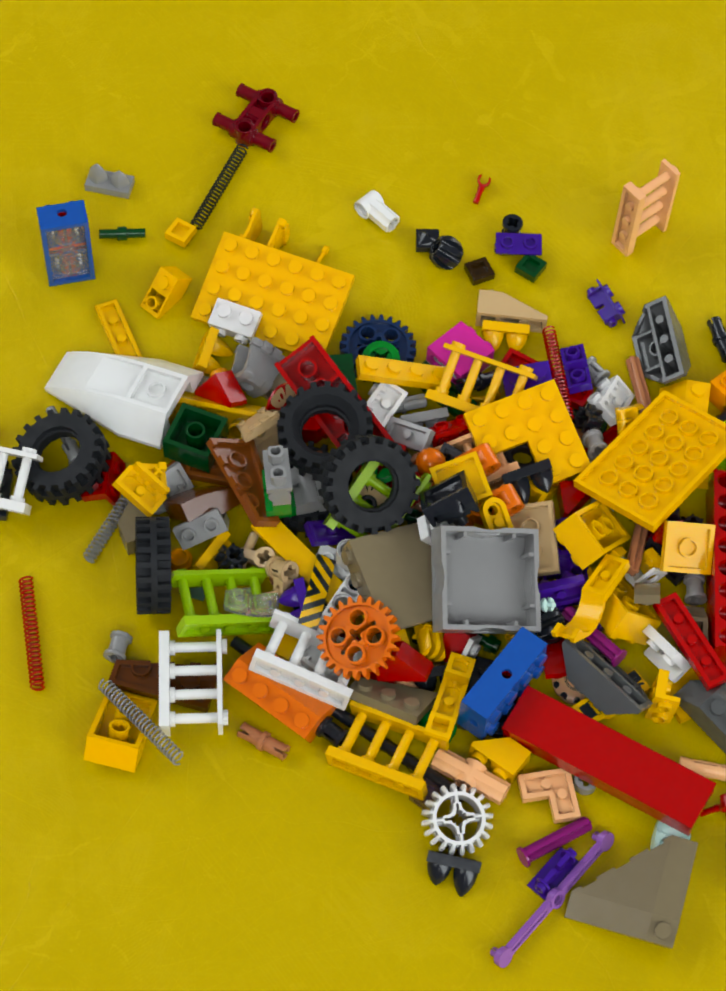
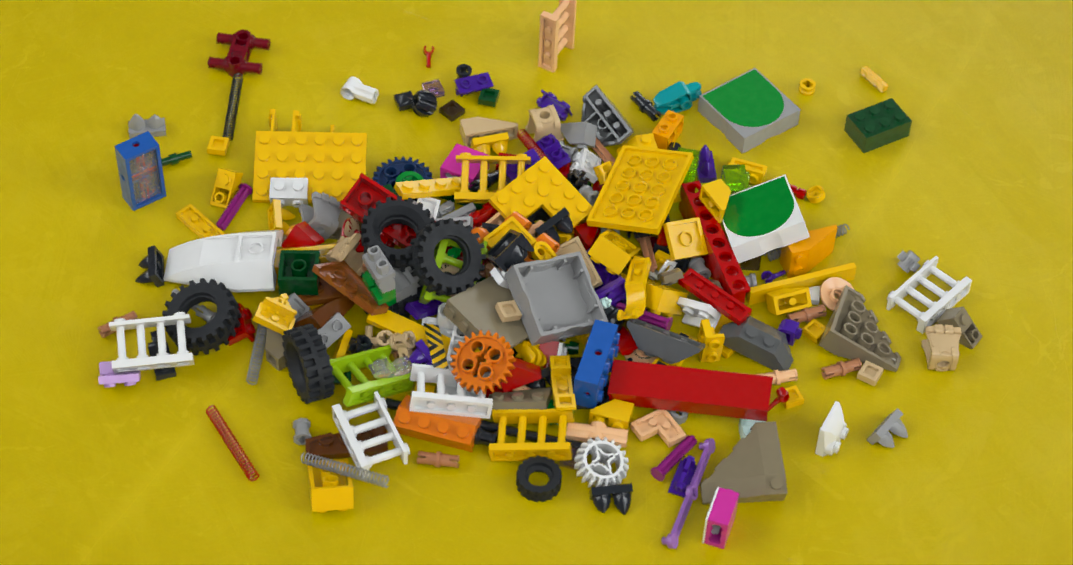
camera: 20 degrees left, 10 degrees down
(40, 371) = (155, 263): none -> black tile
(164, 319) = (234, 206): none -> magenta axle
(373, 831) = (538, 493): none -> black tyre
(418, 579) = (508, 311): none -> tan plate
(467, 235) = (435, 87): none -> plate
(574, 950) = (720, 517): none -> dark pink piece
(581, 327) = (544, 122): none -> tan piece
(619, 355) = (580, 134): none -> light grey slope

